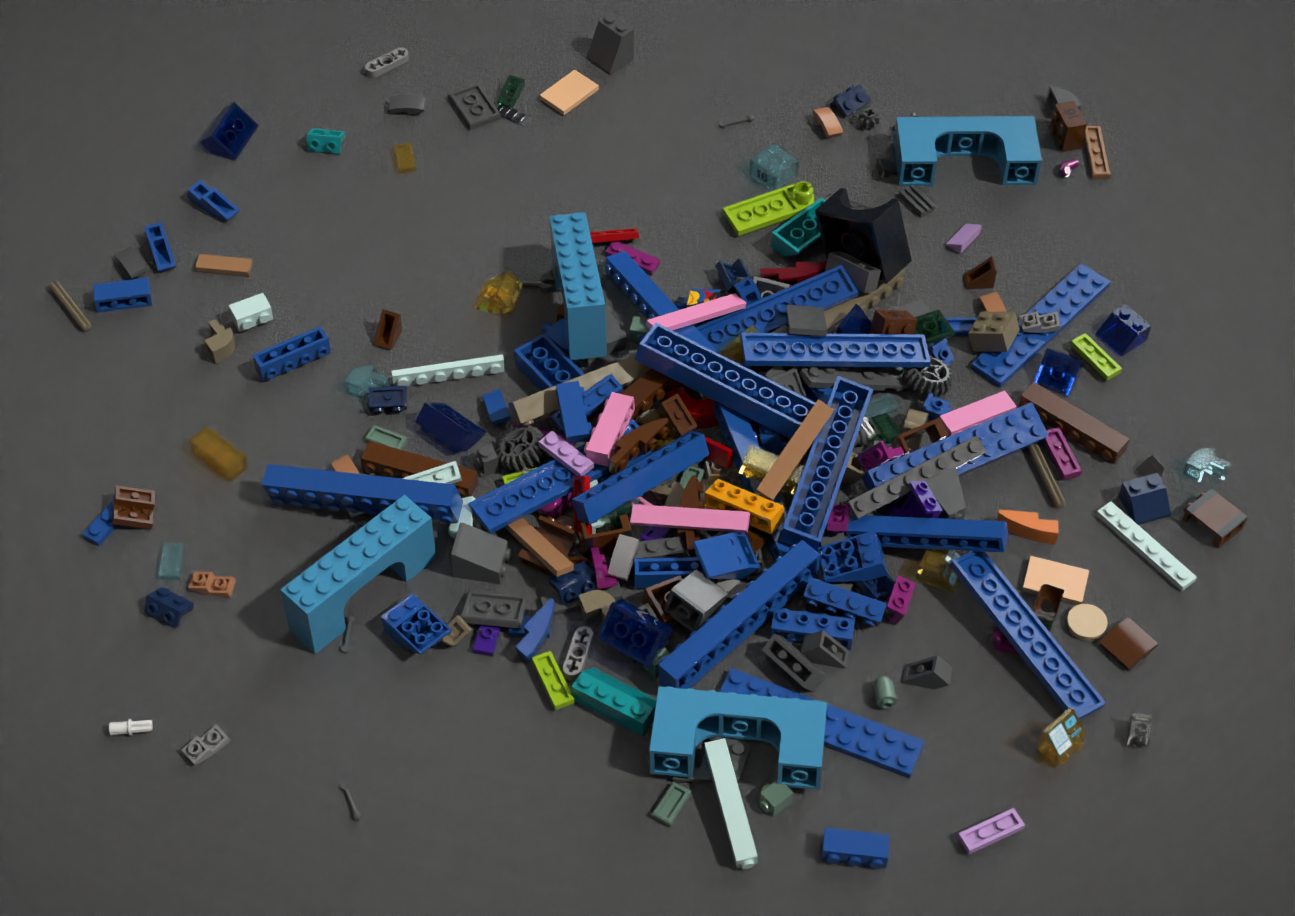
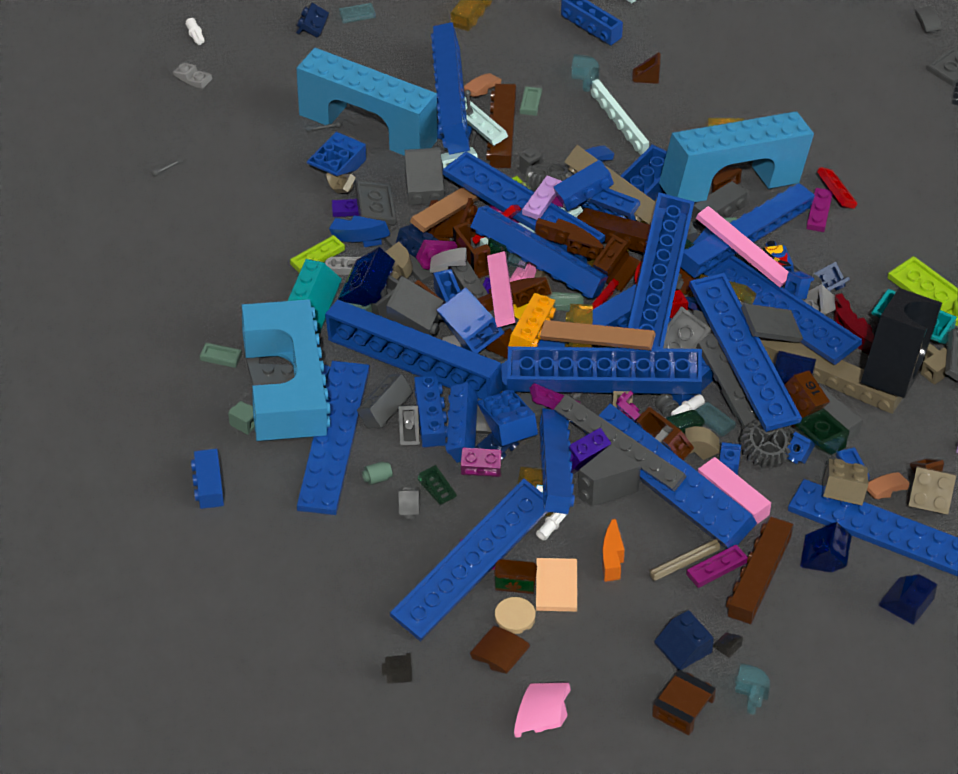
camera: 75 degrees right, 5 degrees down
(212, 585) = (342, 39): nougat slope -> none
(387, 398) = (572, 89): dark blue bracket -> none
(405, 157) = (864, 35): clear yellow tile -> none
(449, 426) = (559, 132): clear blue slope -> none
(610, 428) = (588, 216): bright pink brick -> none
(731, 804) = (224, 384): light aqua brick -> none
(861, 274) = (858, 356): dark grey brick -> none
(899, 654) = (434, 472): none -> clear green slope
(991, 831) = (254, 571): lavender plate -> none
(1017, 275) = (932, 490): none -> dark tan brick
(1039, 324) = (879, 520): light grey slope -> none
(1062, 739) = (364, 603): clear yellow slope -> none
(1096, 356) = (861, 578): lime plate -> none
(1146, 546) = (628, 653): light aqua plate -> none
(1206, 624) = (542, 707): none -> bright pink slope

